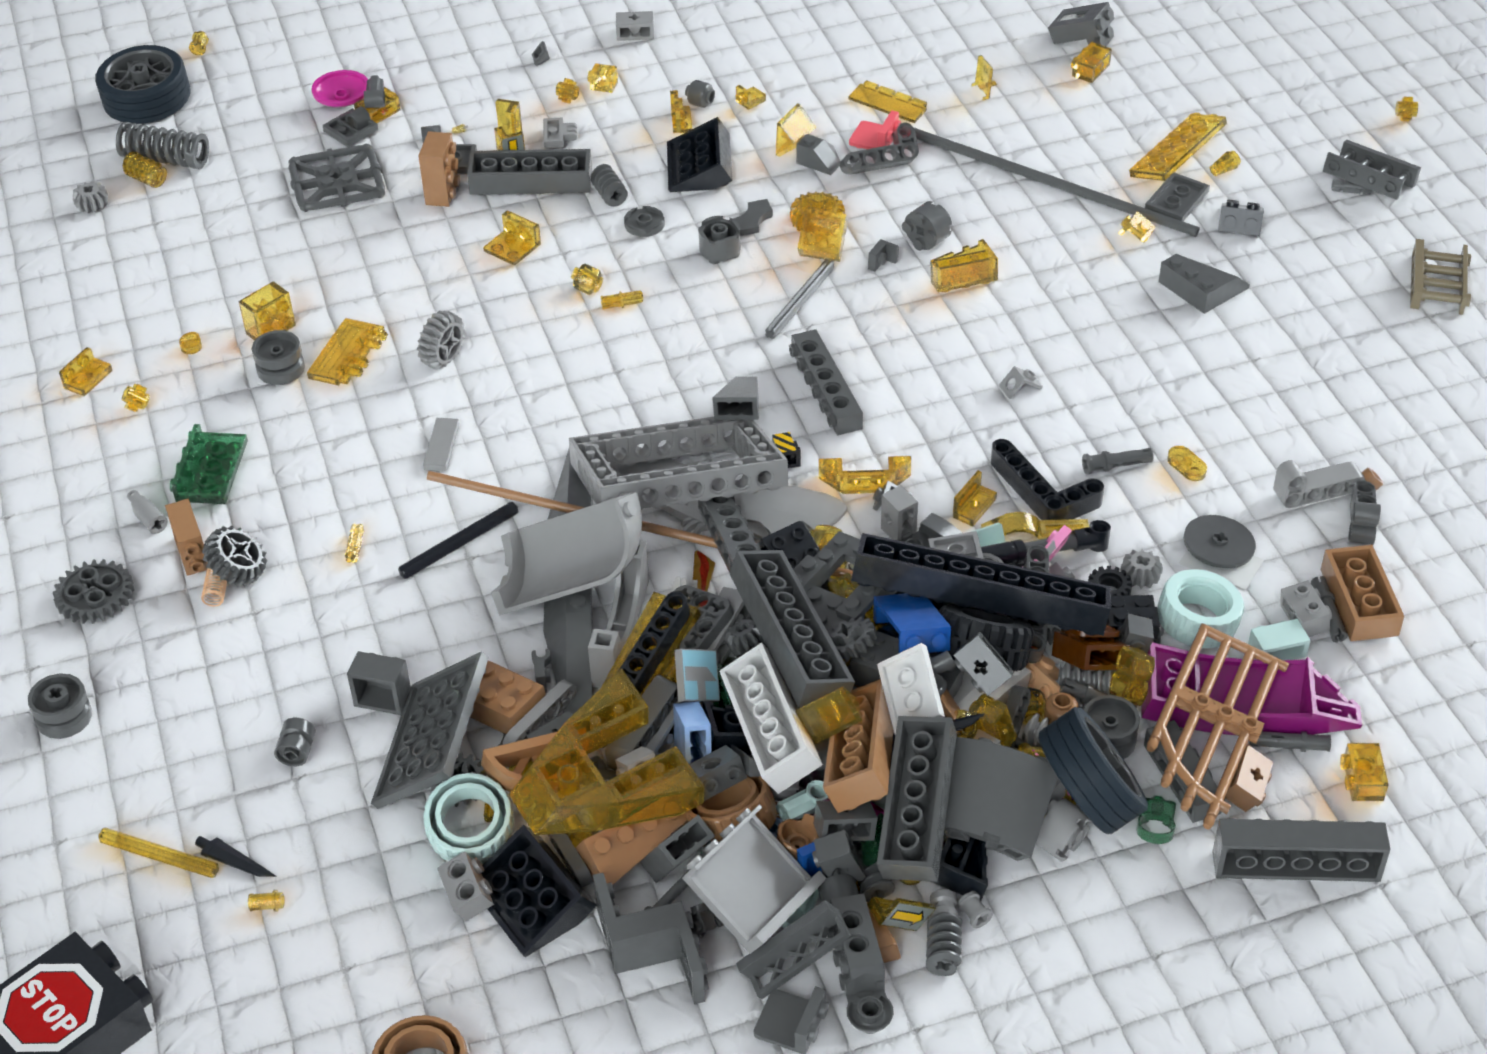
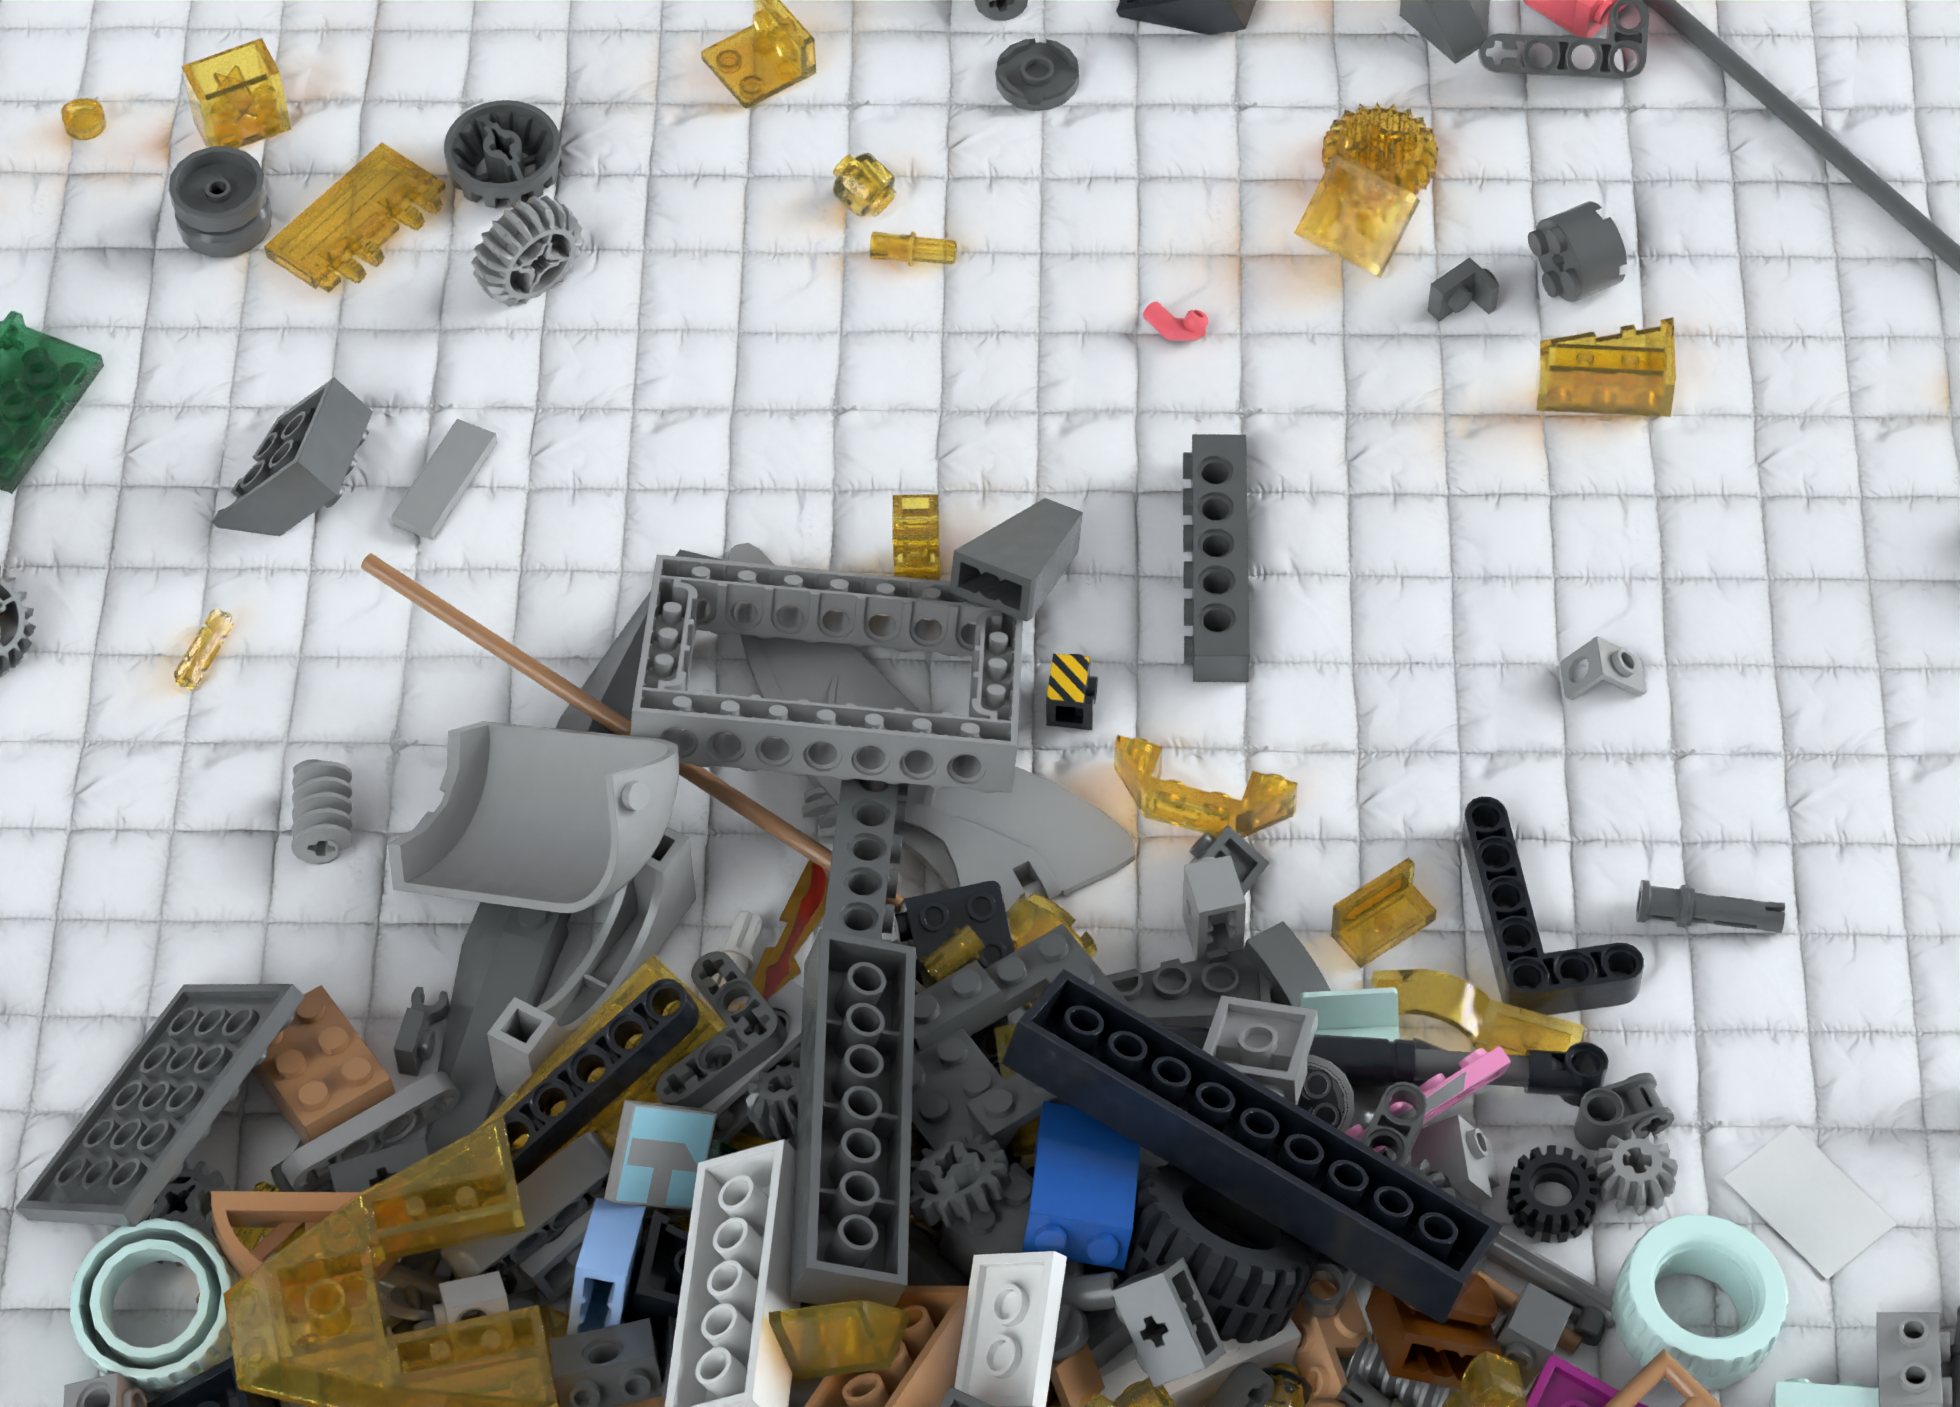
camera: 20 degrees right, 10 degrees up
(367, 453) = (300, 463): none -> dark grey wedge
(379, 682) = (117, 969): dark grey piece -> none
(413, 303) = (501, 135): none -> dark grey gear
(448, 591) = (321, 810): none -> light grey piece
(458, 540) = (383, 703): black axle -> none
(684, 402) = (916, 536): none -> clear yellow brick
(719, 239) = (1155, 164): dark grey brick -> none
(754, 216) = (1265, 116): dark grey tile -> none
(765, 299) = (1176, 329): none -> coral arm
(797, 552) = (953, 953): none -> clear yellow pin
(799, 299) = (1258, 345): axle -> none
(1119, 545) = (1624, 1107): none -> dark grey piece
(1136, 605) = (1563, 1263): black plate -> none
(1187, 463) = (1844, 965): clear yellow plate -> none
(1203, 539) = (1832, 1191): dark grey piece -> none

